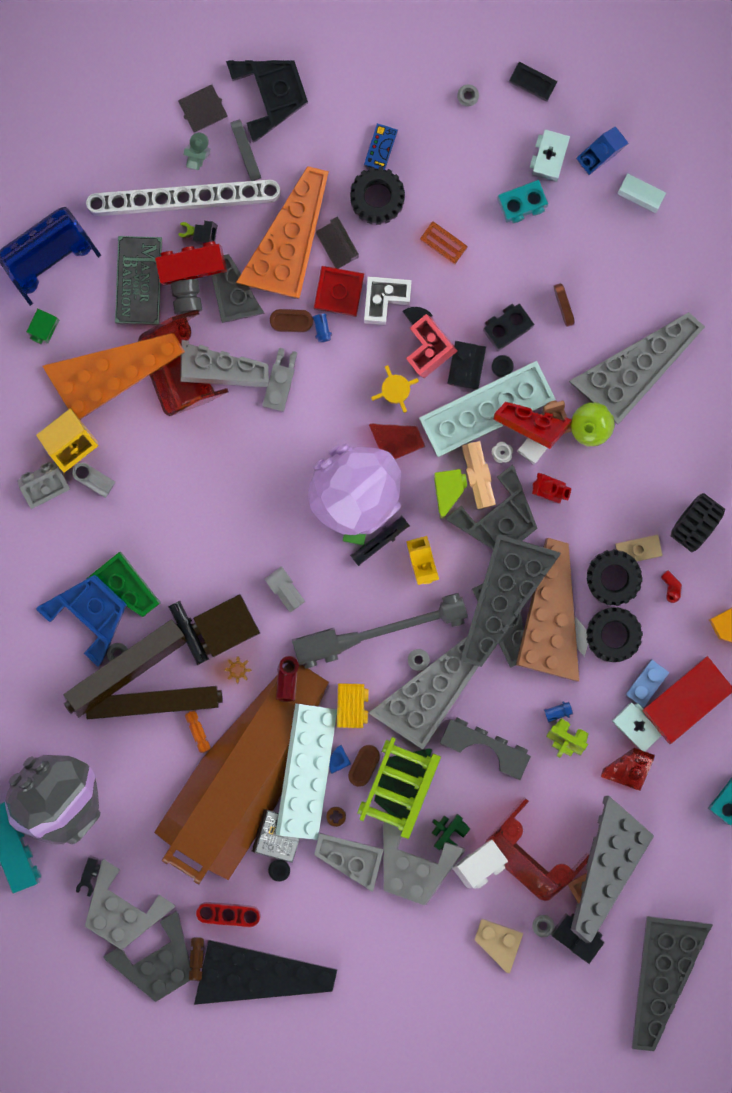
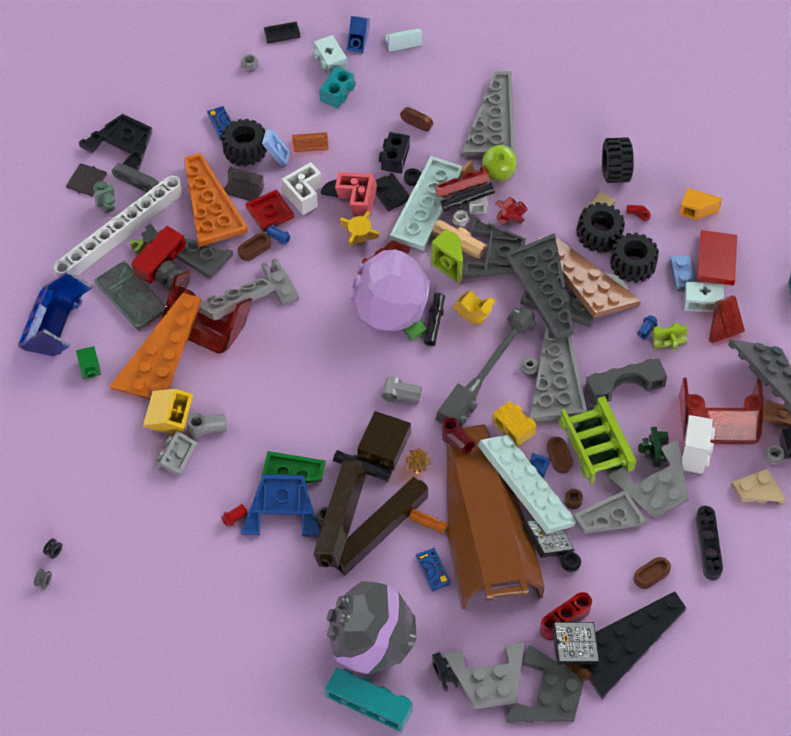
camera: 45 degrees left, 30 degrees down
(43, 587) = (234, 515): none -> red pin
(162, 778) = (433, 569): none -> blue tile
(208, 947) = (575, 643): none -> tile
(336, 937) = (652, 572): none -> copper tile
(398, 230) = (276, 147): none -> light blue plate
(406, 951) = (712, 542): none -> black beam
(511, 439) = (464, 198): none -> black pin

